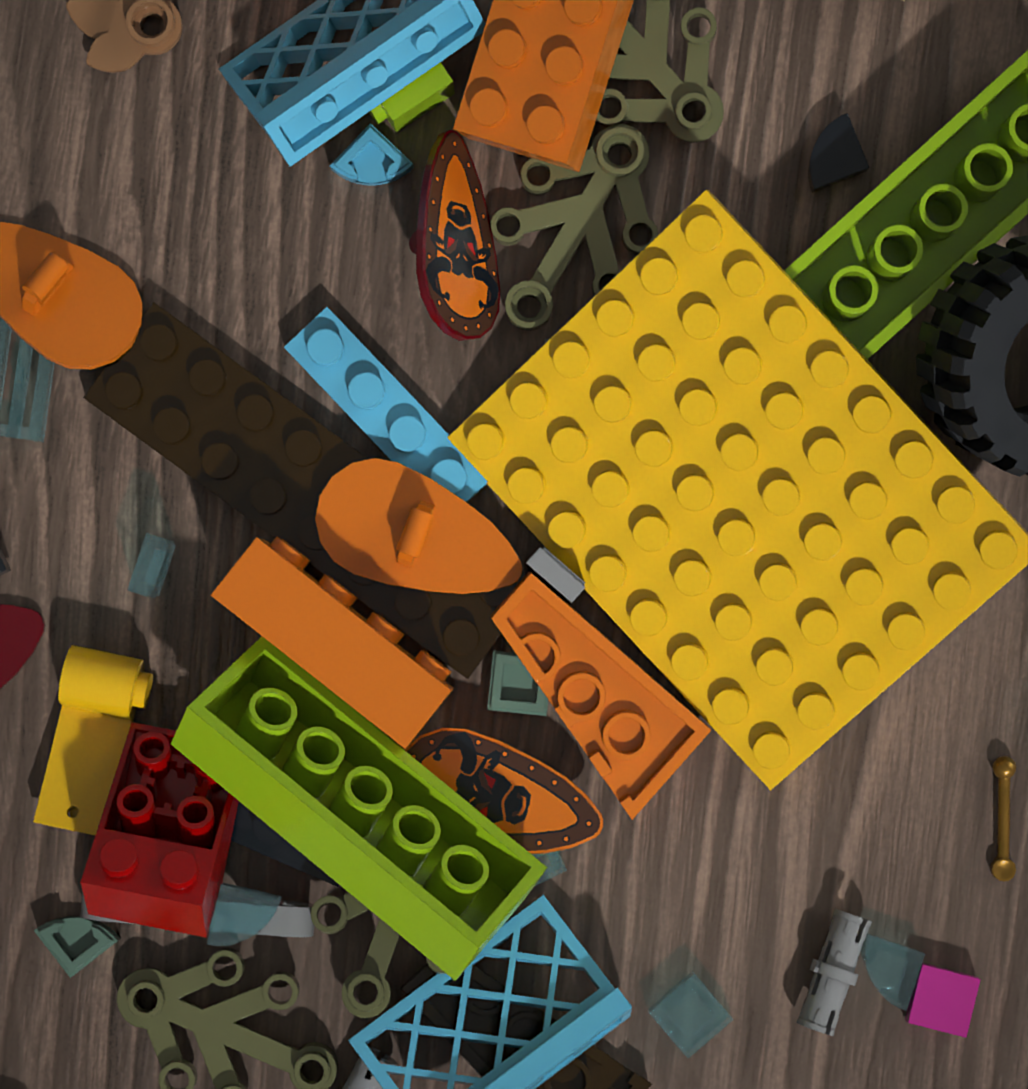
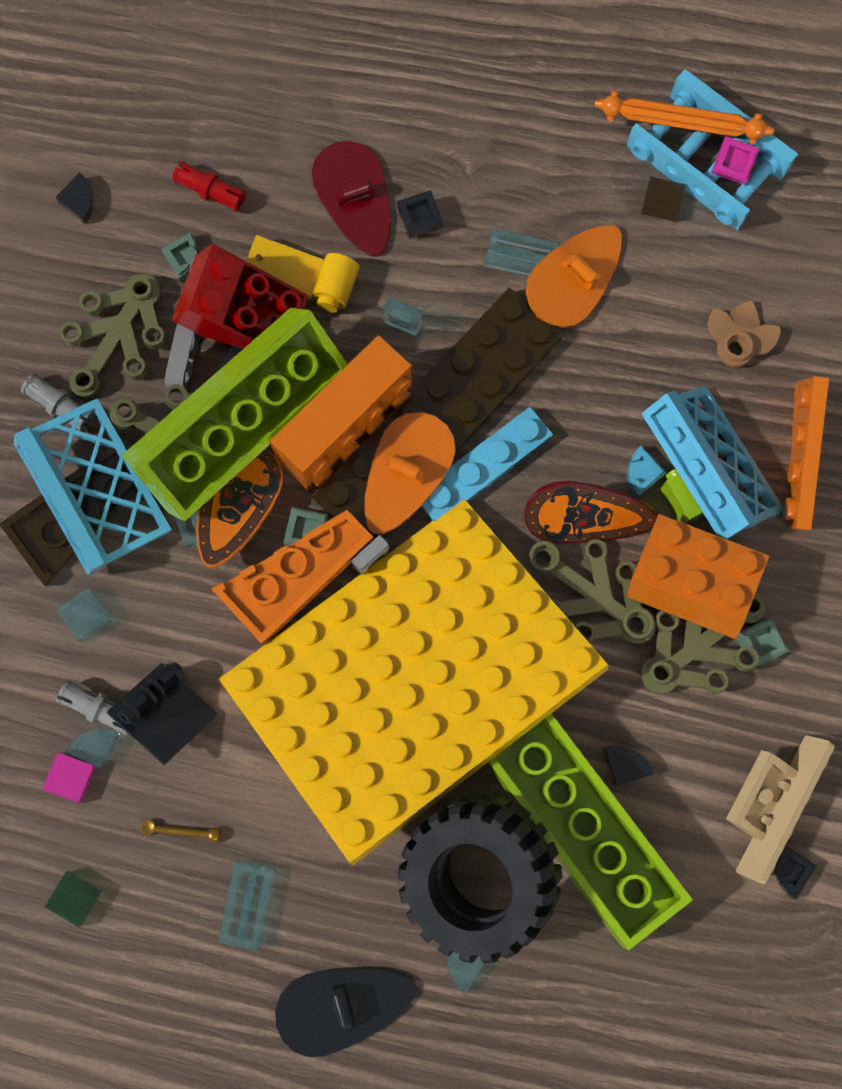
camera: 90 degrees right, 10 degrees down
(240, 914) = (183, 342): clear light blue tile -> none
(833, 868) = (162, 712): none -> black hinge

